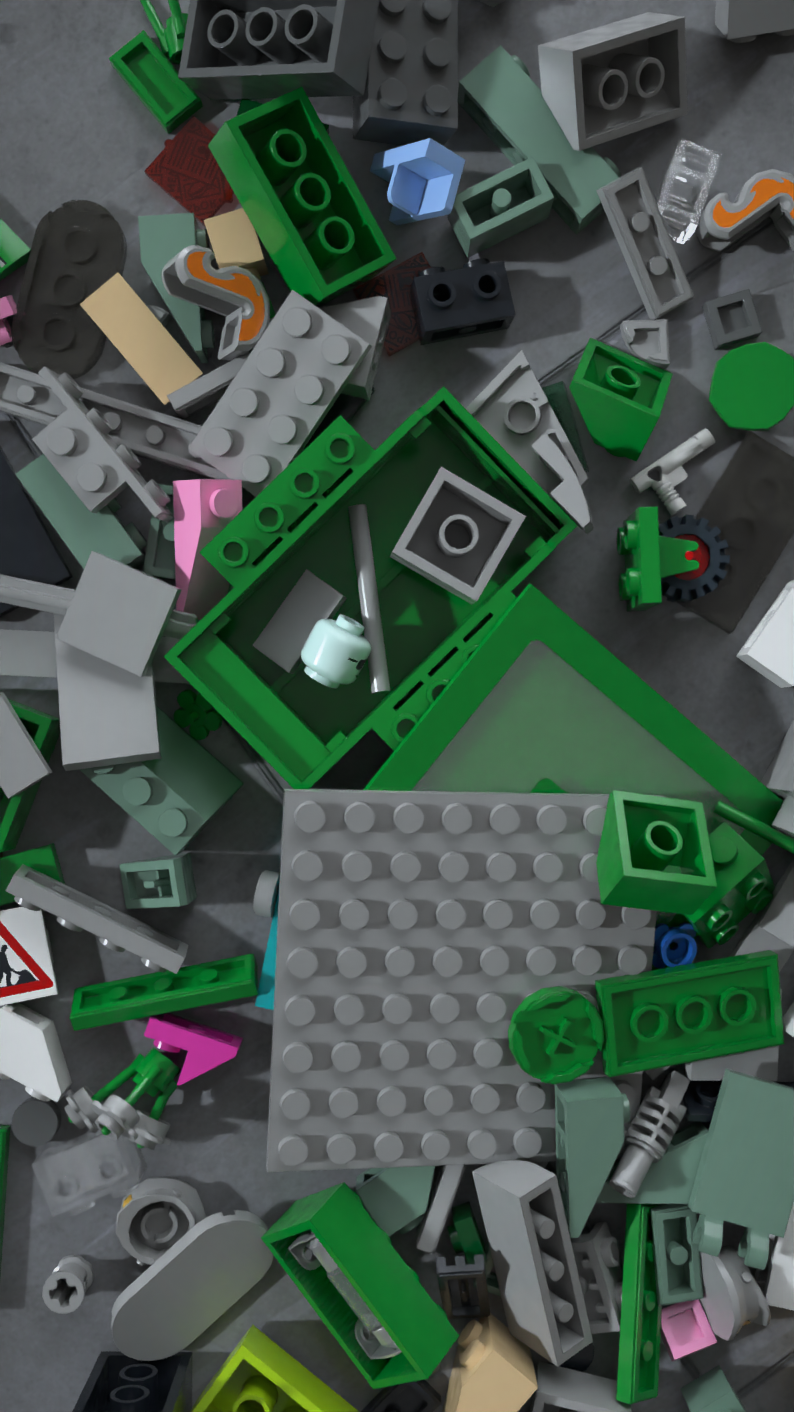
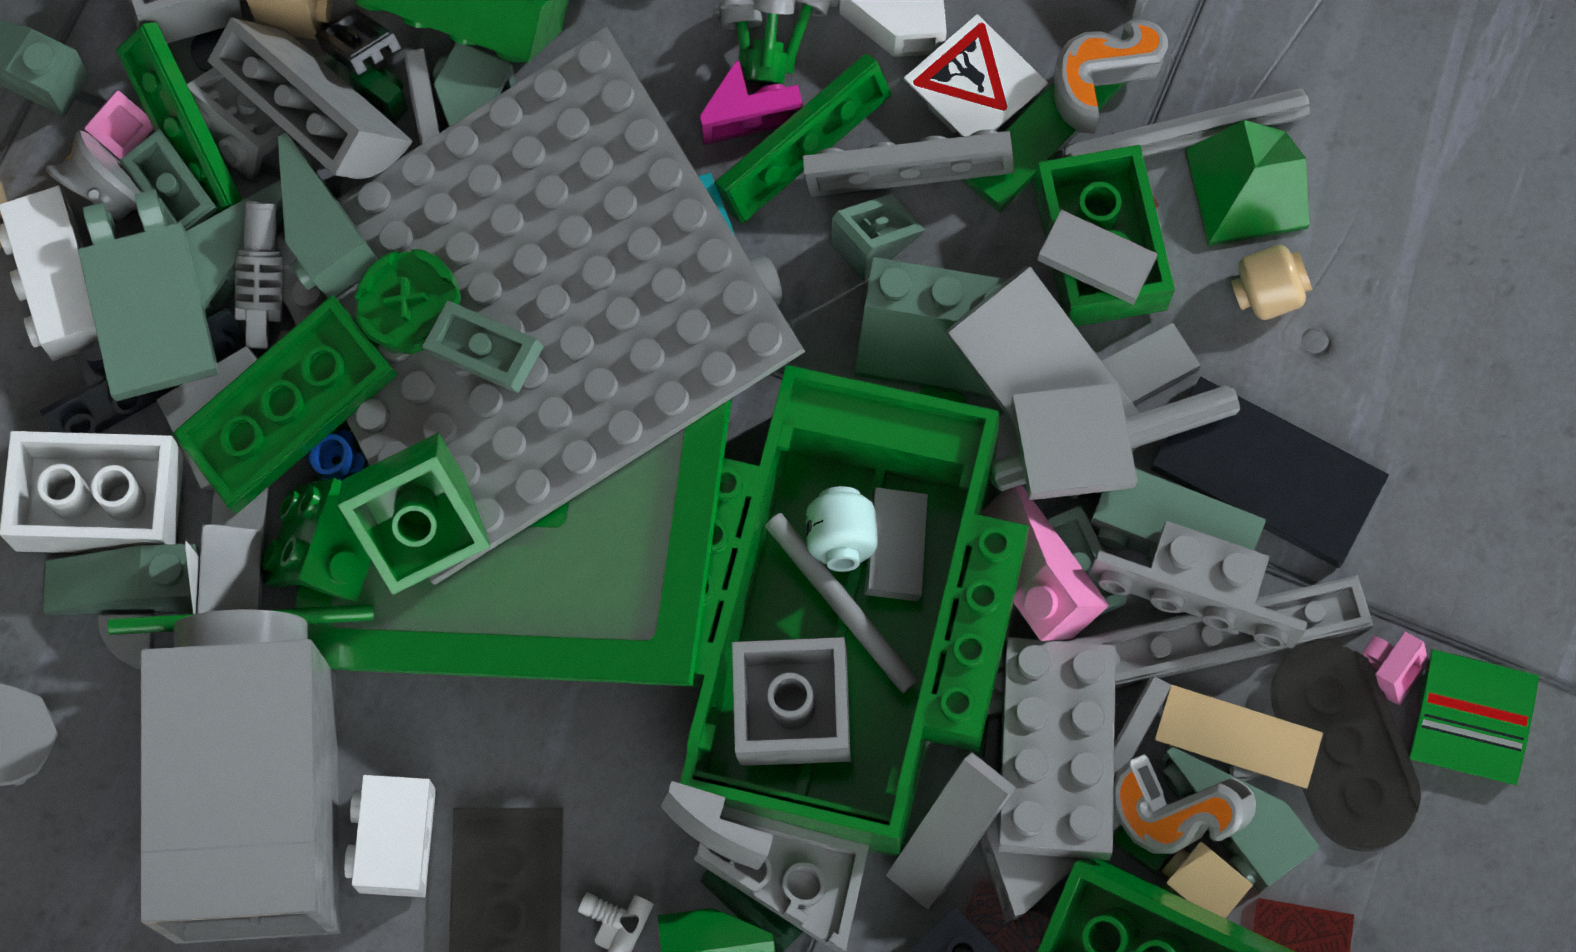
camera: 150 degrees right, 15 degrees down
(390, 385) = (950, 831): none -> light grey tile
(525, 955) = (483, 346): none -> sand green plate
(669, 559) = (556, 833): plate -> none

